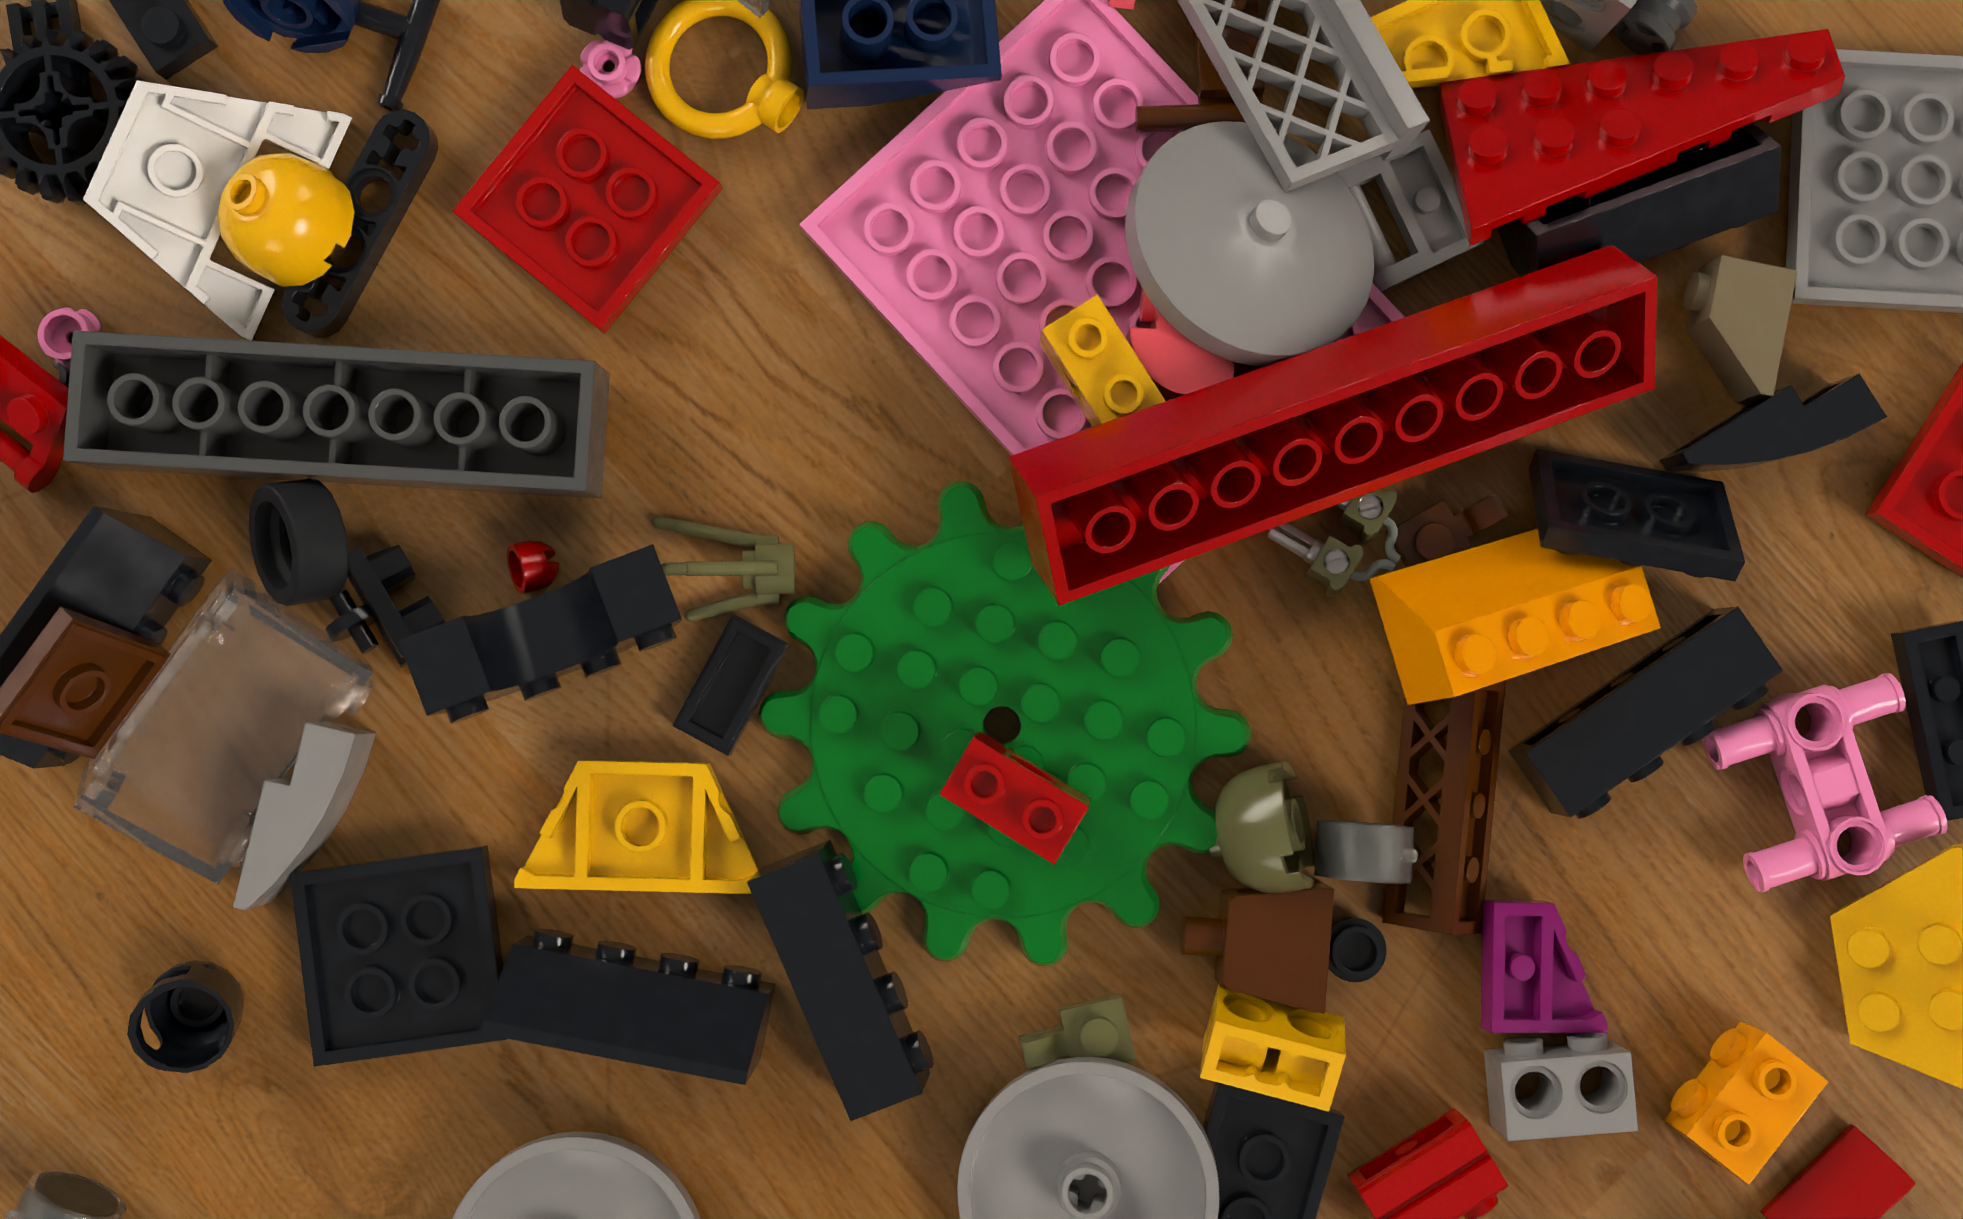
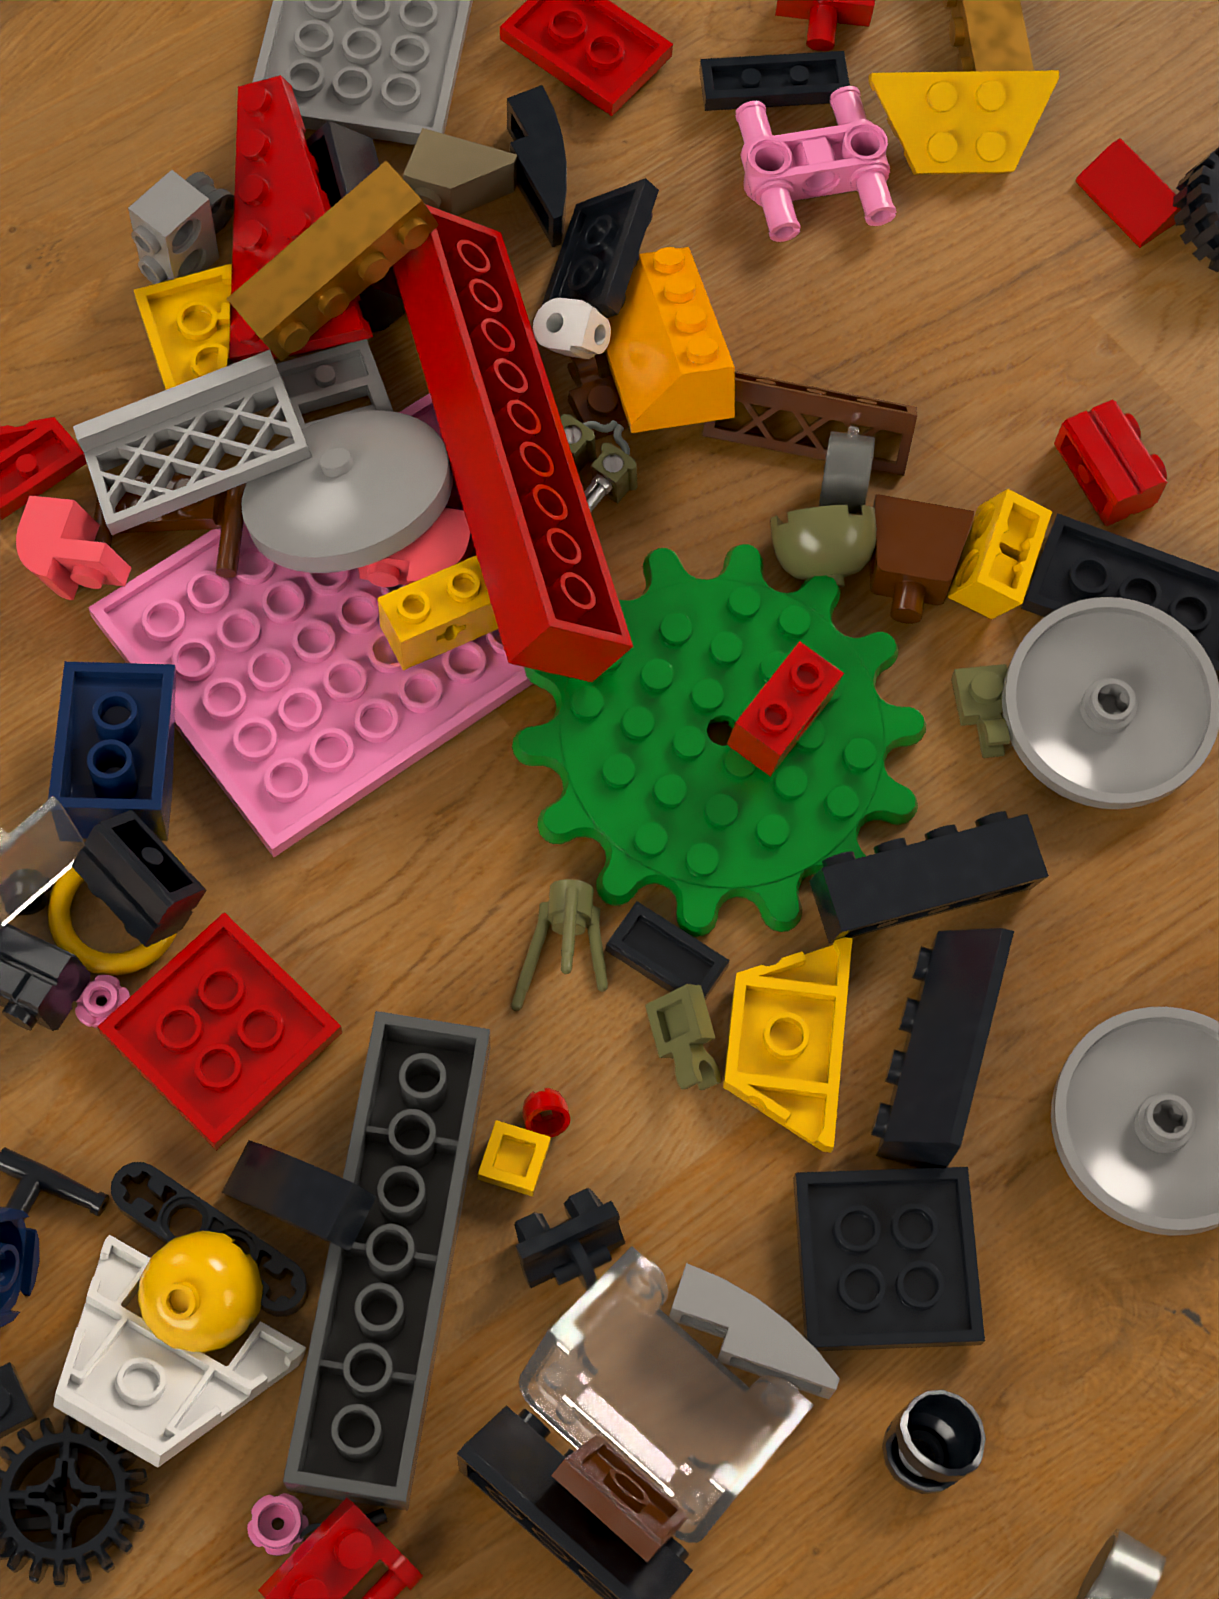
camera: 90 degrees left, 20 degrees down
(298, 541) = (494, 1266): black tyre -> none
(383, 306) = (299, 1194): none -> black slope
(474, 537) = (514, 1158): none -> yellow plate
(543, 638) = (607, 1070): black brick -> none
(633, 712) = (679, 1030): none -> olive plate
(729, 75) = (138, 878): none -> black brick
(1356, 949) = (926, 488): black plate -> none
(1513, 490) = (571, 328): none -> white piece
(1531, 973) = (948, 374): magenta wing -> none
(1555, 177) = (334, 261): none -> pearl gold brick
(1557, 1104) = (1048, 364): light grey brick -> none
(1646, 712) = (752, 274): black brick -> none
(1744, 1100) = (1054, 242): light orange brick -> none

